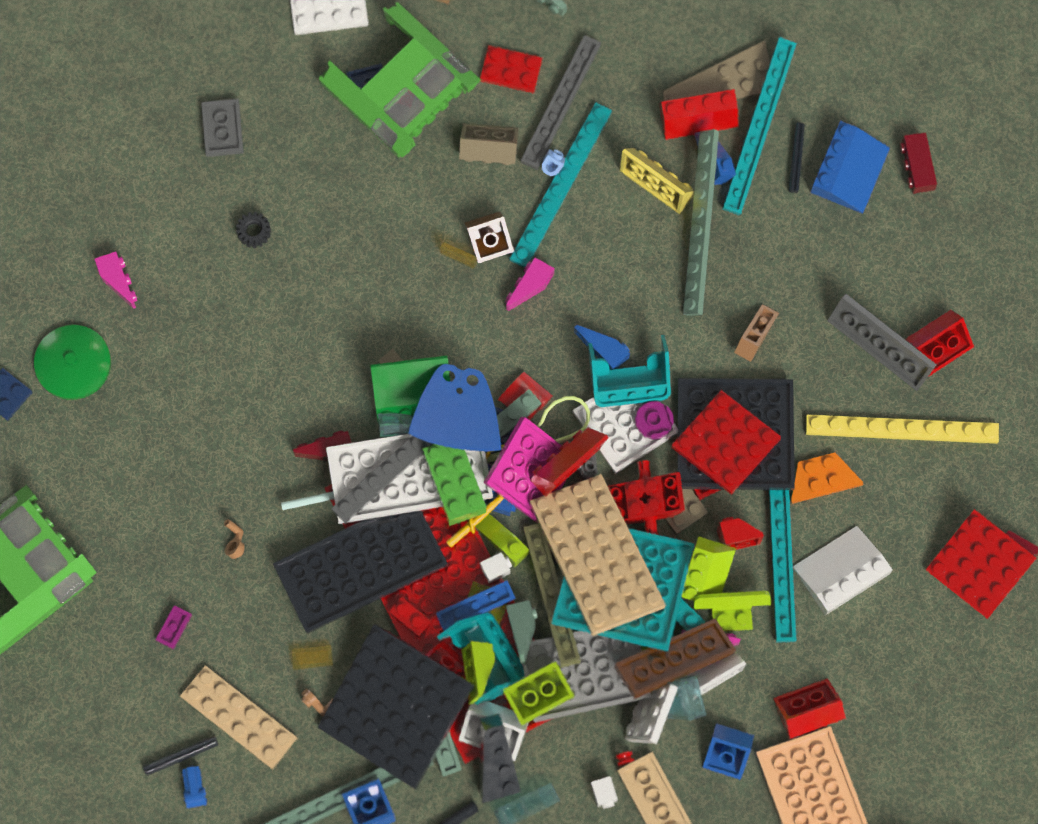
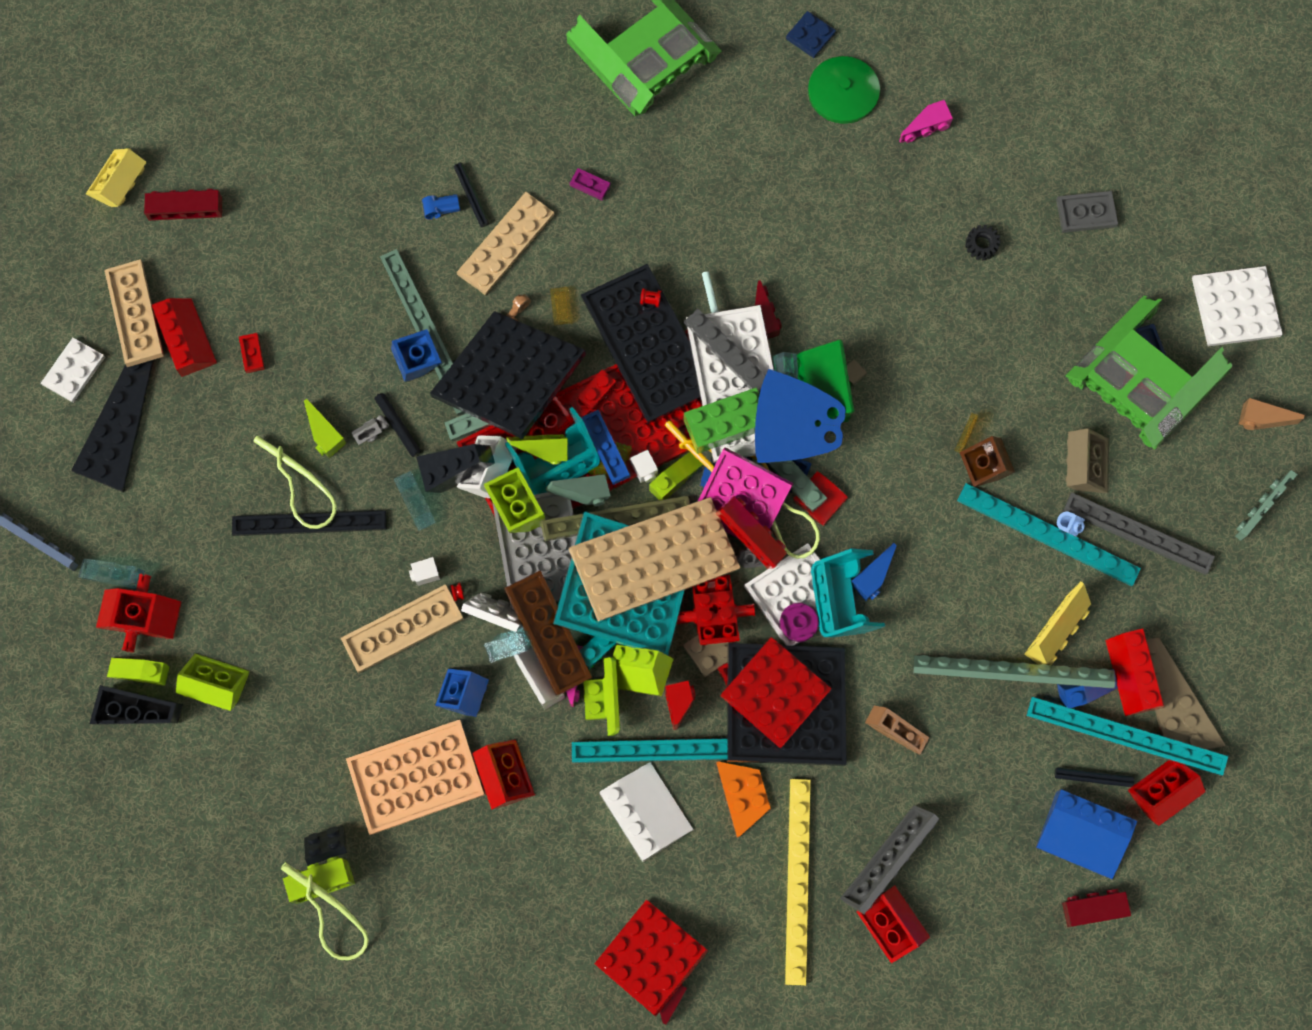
camera: 90 degrees right, 0 degrees up
(235, 547) = (666, 235): medium nougat plate -> none
(316, 564) = (650, 297): none -> red bush
(511, 69) = (1171, 485): red plate -> none
(533, 282) = (942, 506): dark pink slope -> none
(809, 94) = (1167, 791): none -> red slope

